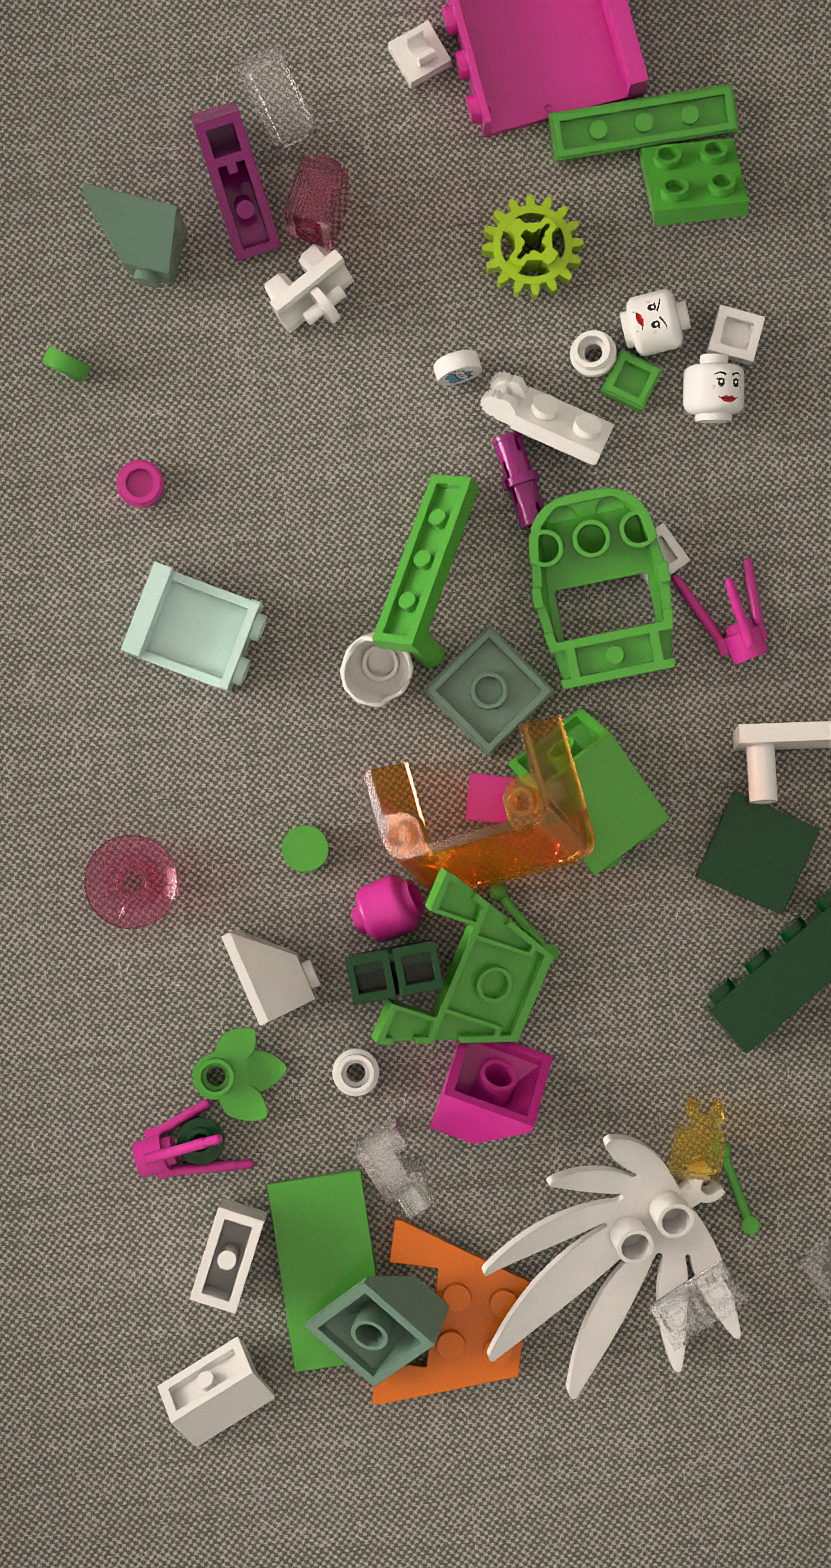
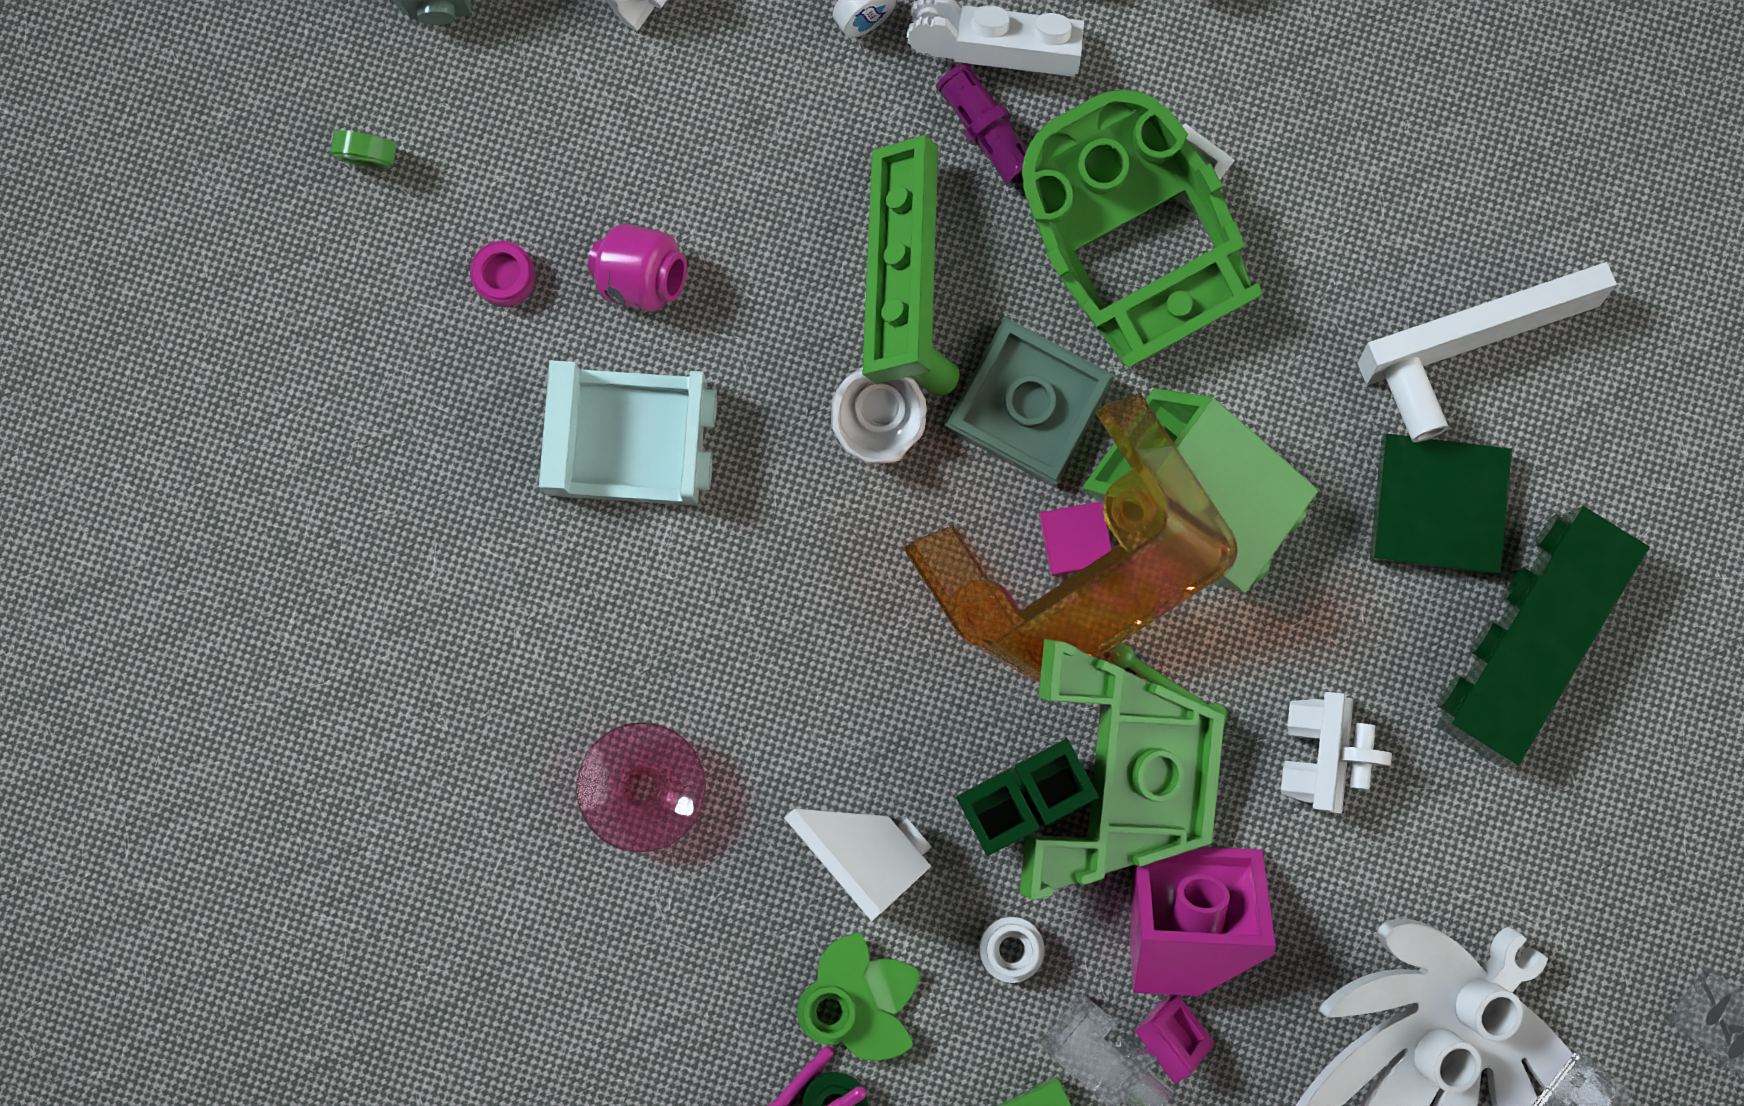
camera: 15 degrees left, 5 degrees down
(237, 510) = (638, 267): none -> dark pink head
(305, 848) = (856, 675): bright green tile -> none
(388, 908) = (988, 719): dark pink head -> none
(449, 1167) = (1175, 1037): none -> dark pink tile
(610, 1022) = (1331, 724): none -> white hips
(701, 1147) = (1496, 909): clear yellow plate -> none
(746, 636) = (1335, 237): dark pink plant -> none
(749, 1222) = (1588, 991): bright green hinge -> none

